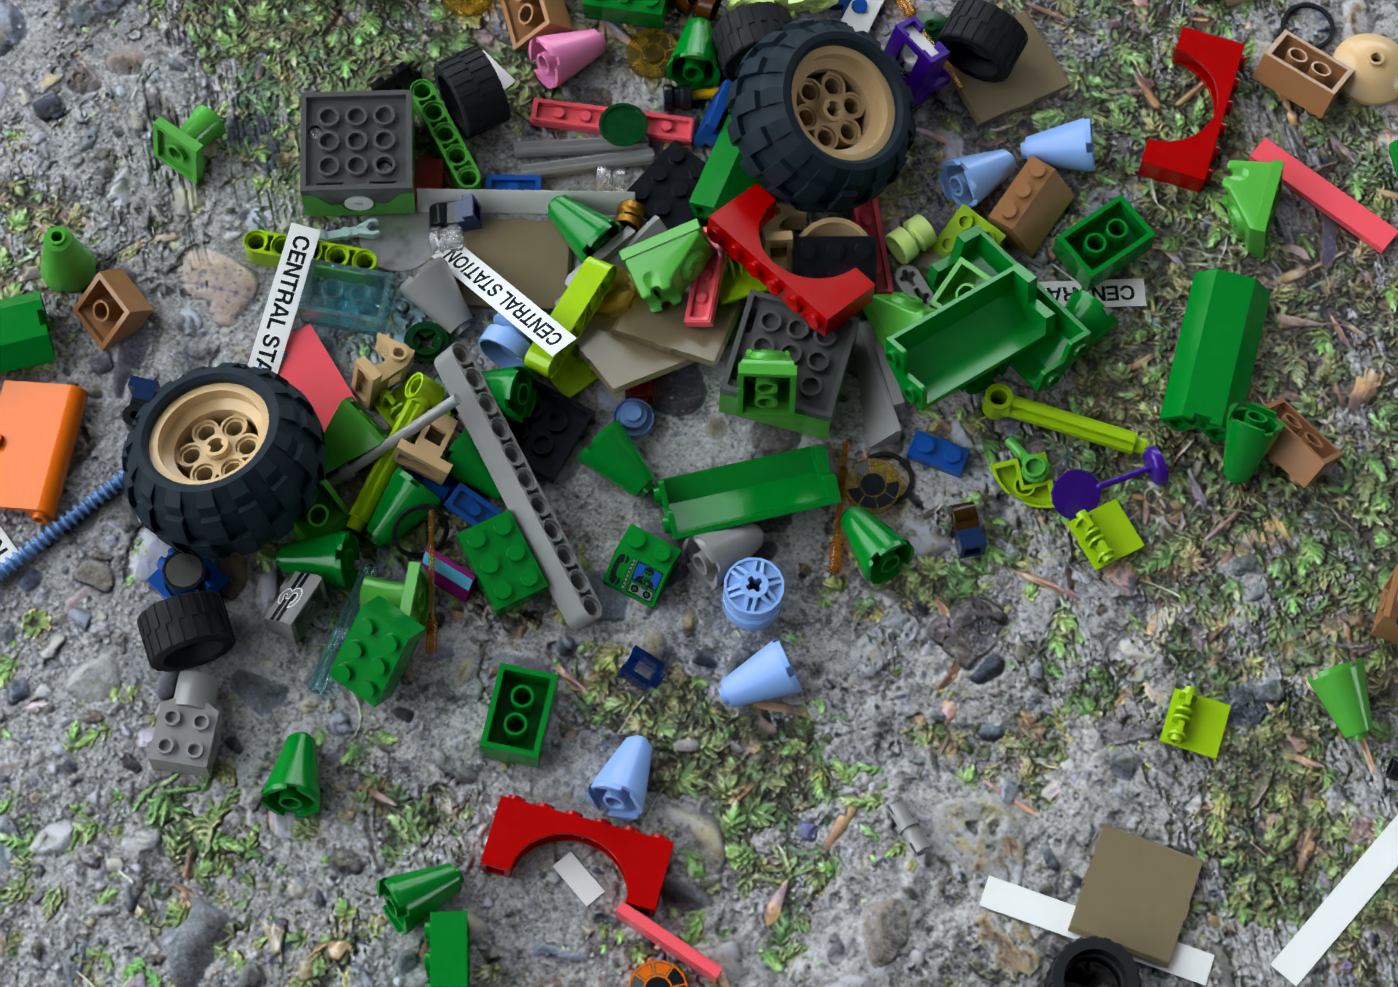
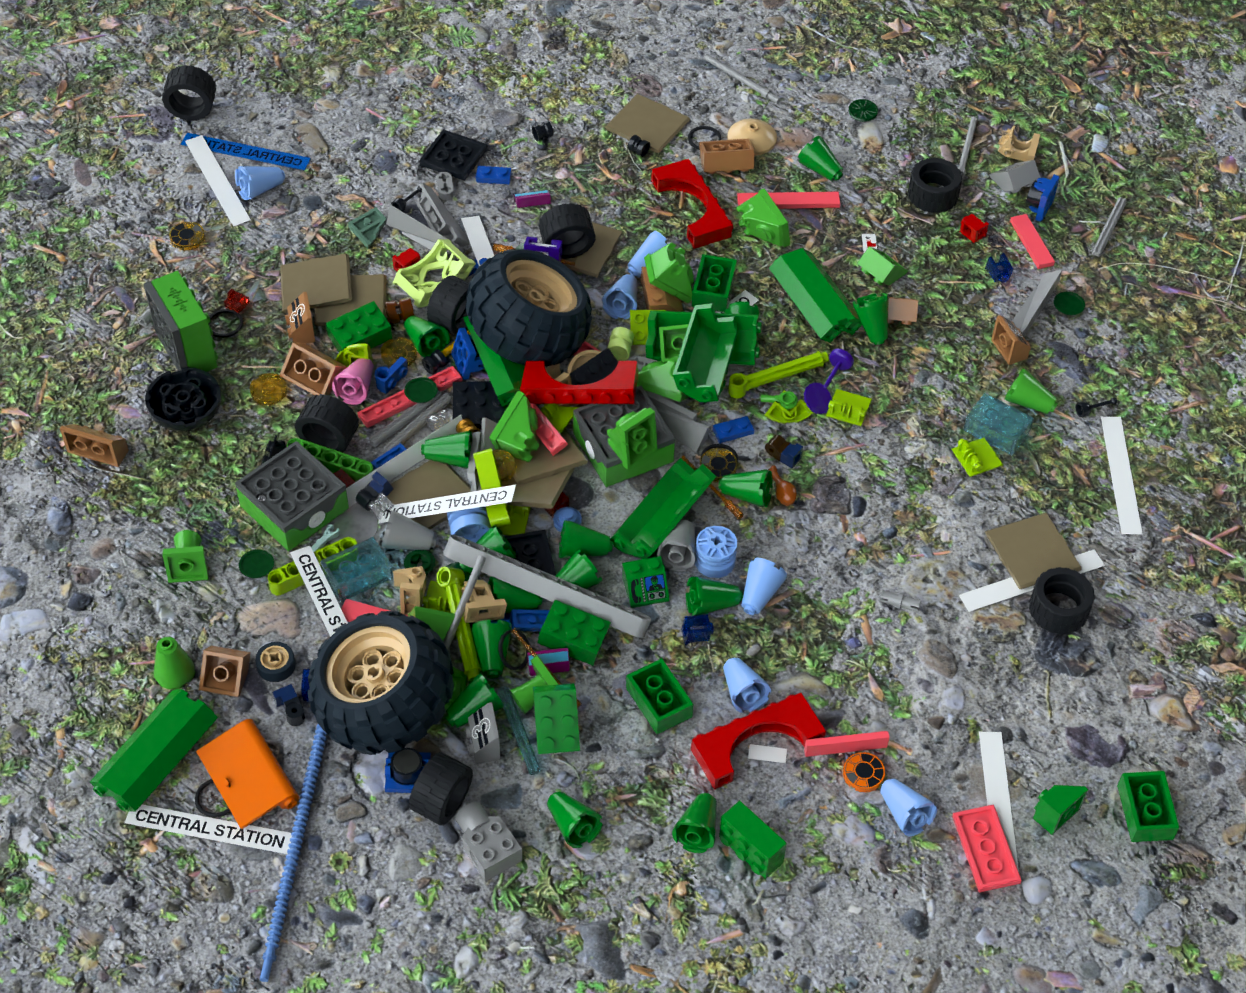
camera: 40 degrees left, 15 degrees down
(171, 354) = (275, 670): none -> wheel
(256, 205) = (256, 563): none -> dark green piece
(575, 496) = (580, 571): none -> green cone
(584, 19) = (354, 352): none -> lime brick
(615, 80) = (387, 378): none -> blue plate
(696, 645) = (711, 596): none -> green cone
(916, 578) = (784, 490): none -> dark orange piece
(1052, 190) = (671, 272): none -> bright green piece
(1263, 703) = (998, 424): none -> clear light blue brick
(1343, 378) = (881, 266): none -> slope
(1365, 335) = (869, 240): none -> white sticker

